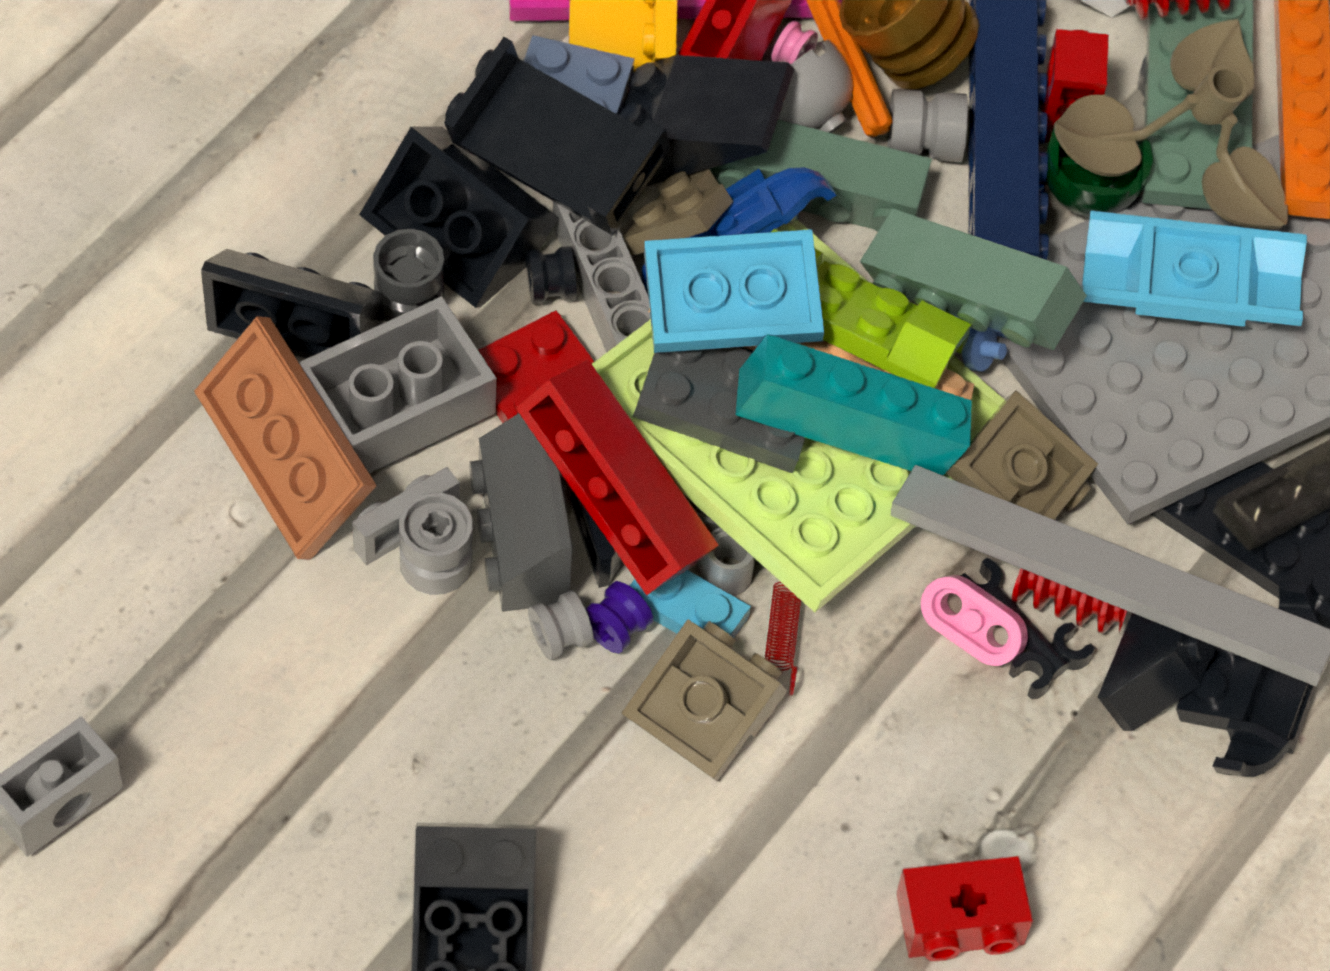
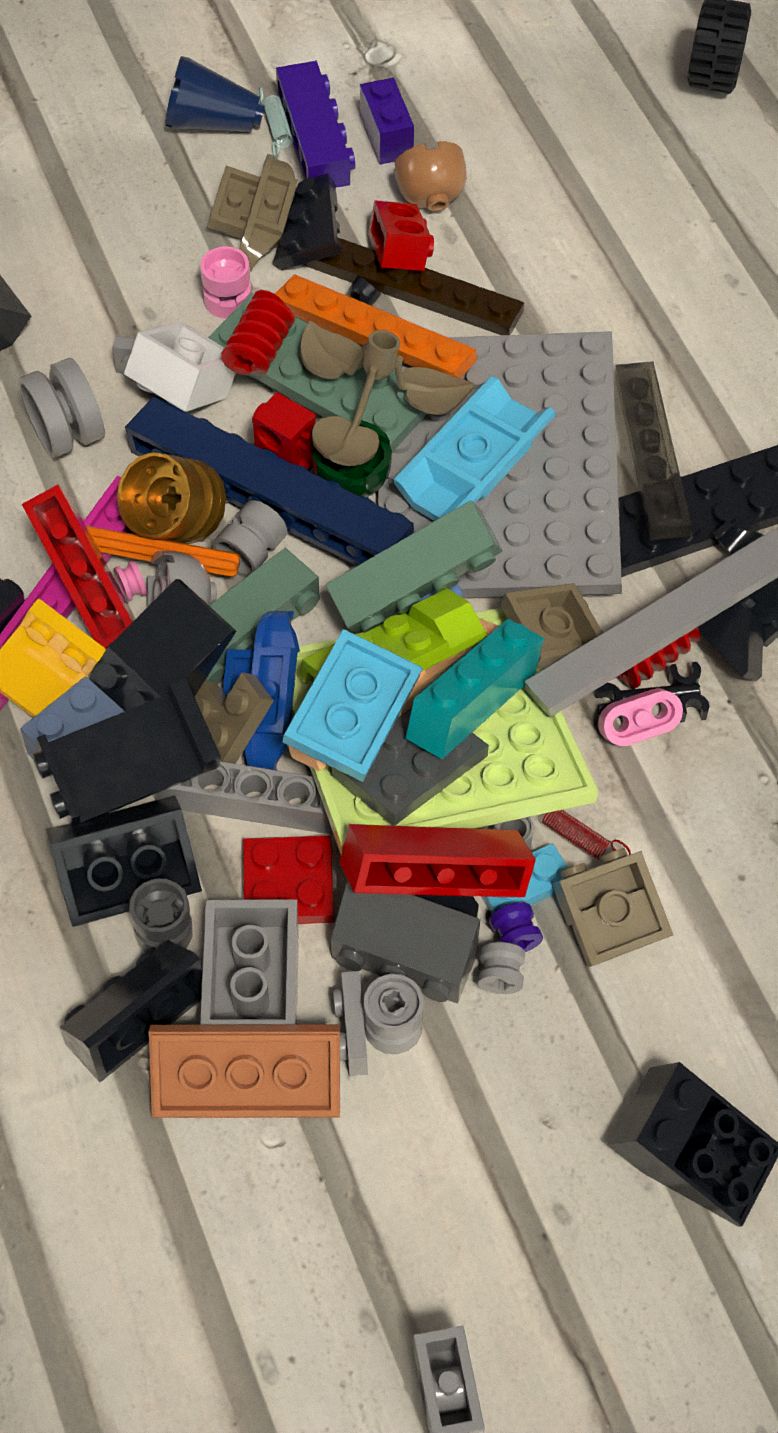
camera: 55 degrees left, 0 degrees up
(551, 275) = (214, 826): black wheel -> none

